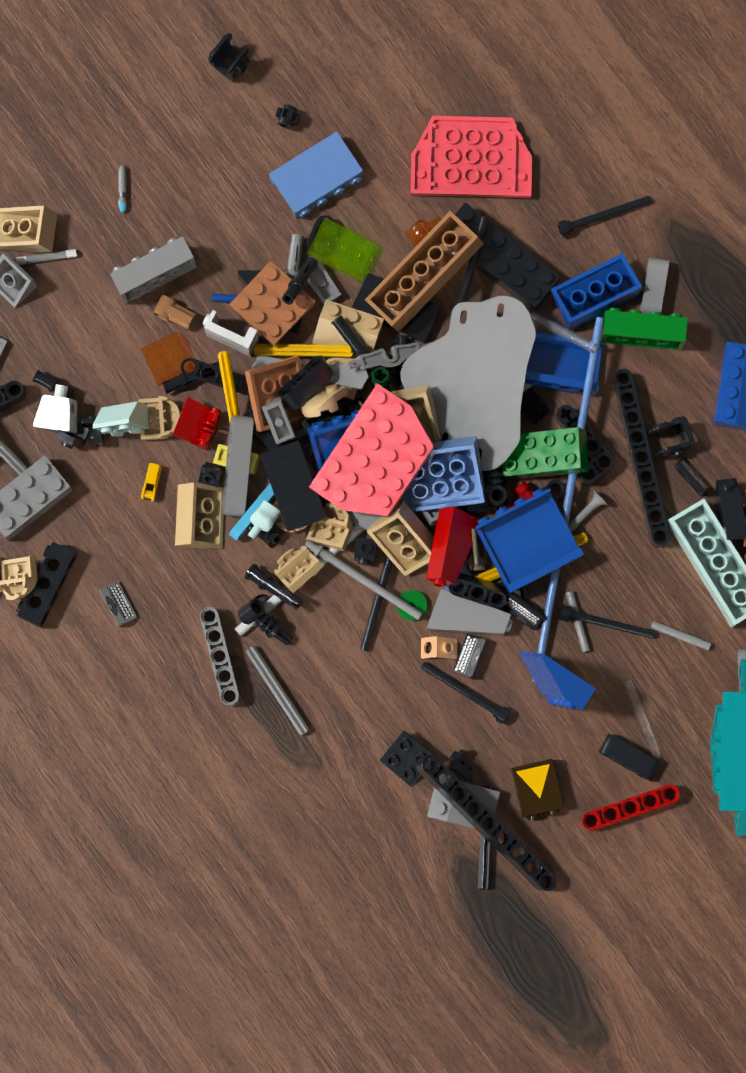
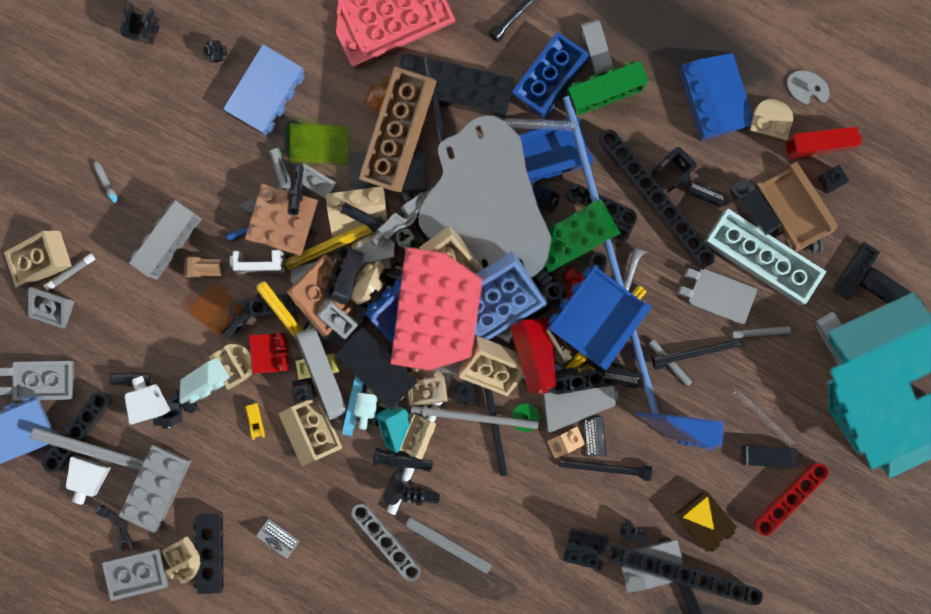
camera: 25 degrees left, 5 degrees up
(281, 550) = (393, 426): none -> teal slope
(657, 579) = (719, 295): none -> light grey tile

